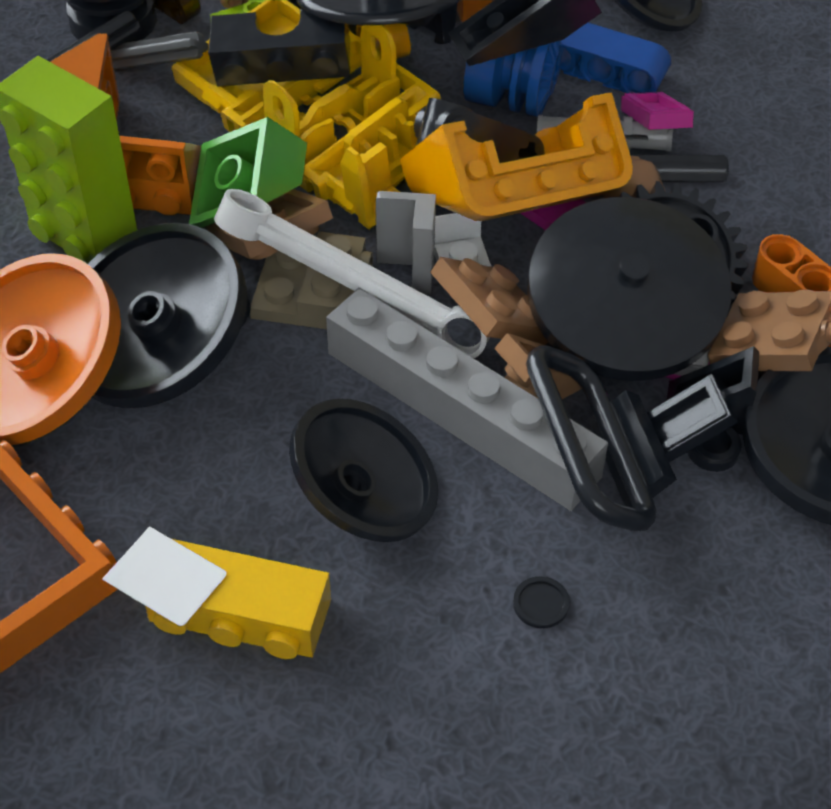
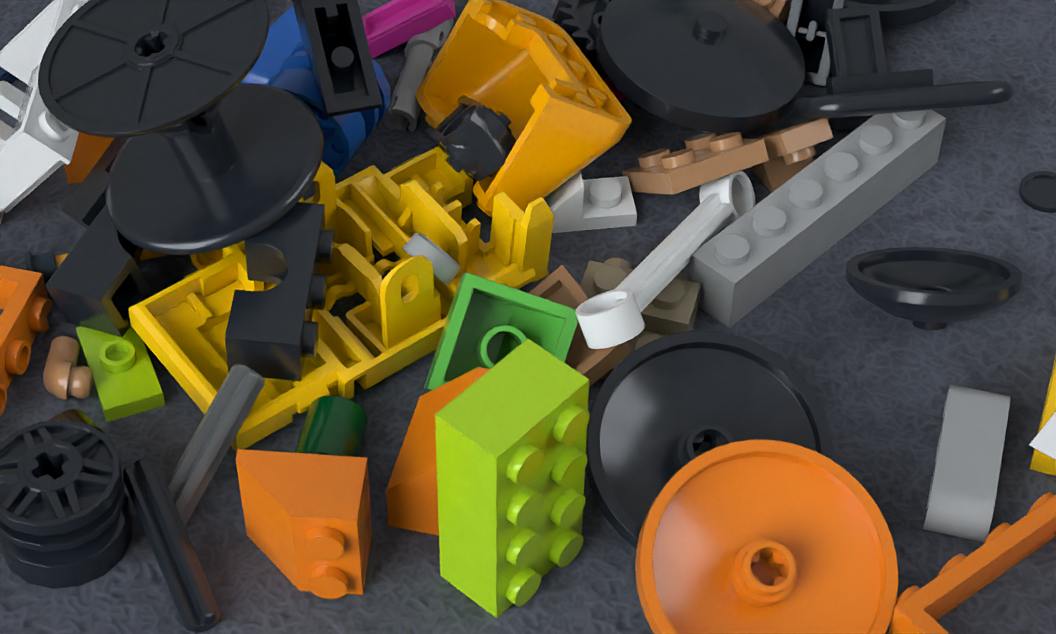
camera: 85 degrees left, 5 degrees down
(169, 500) = (967, 463): none -> light grey beam
(175, 119) = (333, 427): none -> dark green brick
(324, 125) = (444, 266): none -> light grey tile
(407, 233) = (614, 206): light grey panel -> none

